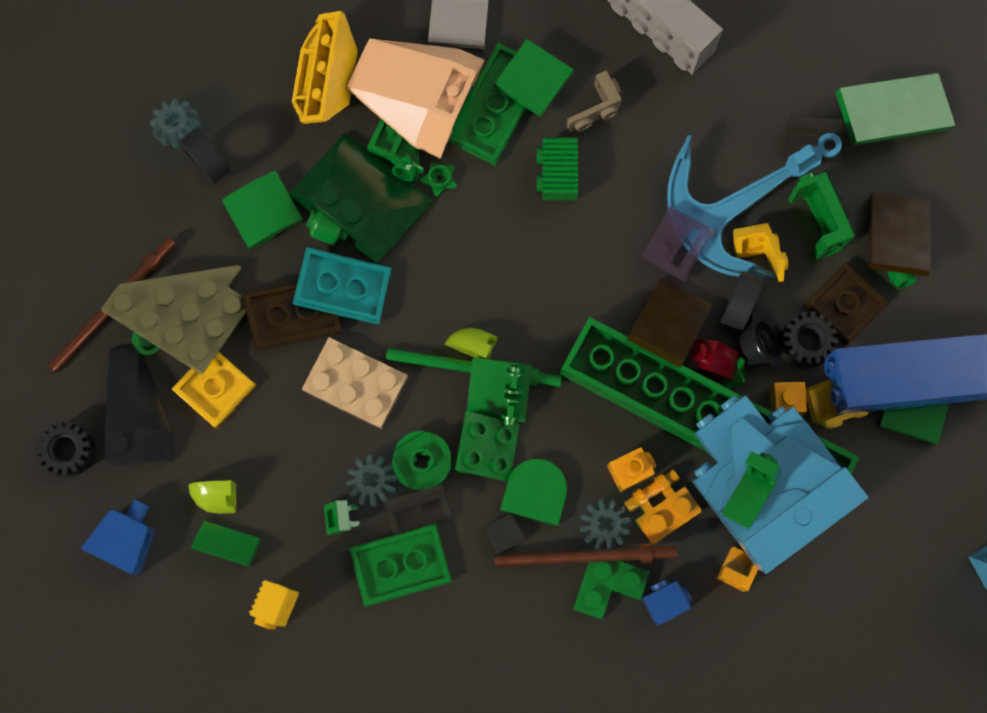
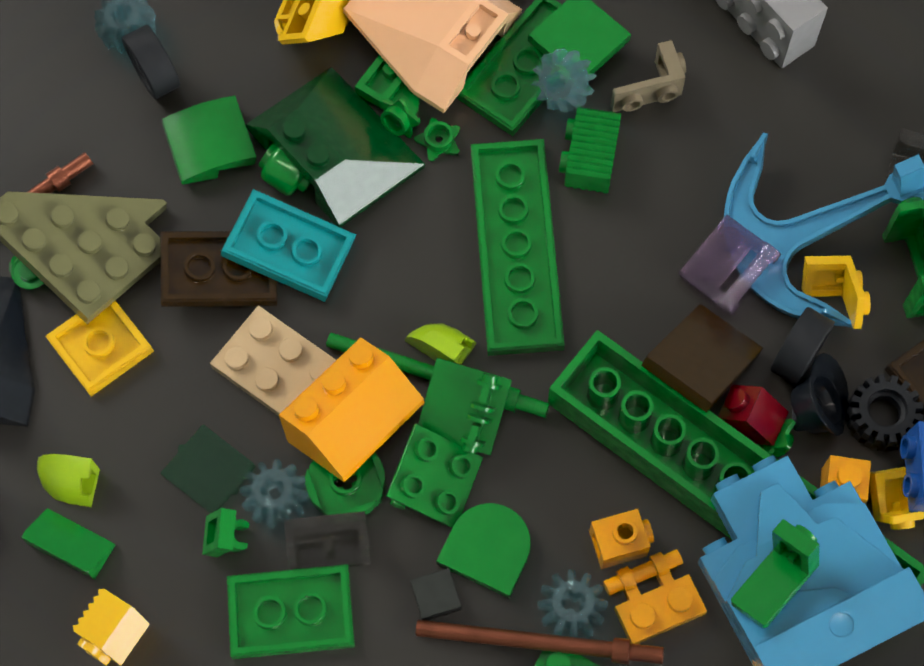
camera: 10 degrees right, 10 degrees down
(317, 469) = (208, 469): none -> clear green piece
(416, 409) = (350, 409): none -> light orange slope
(514, 255) = (516, 248): none -> green tile
(528, 118) = (575, 77): none -> clear light blue gear

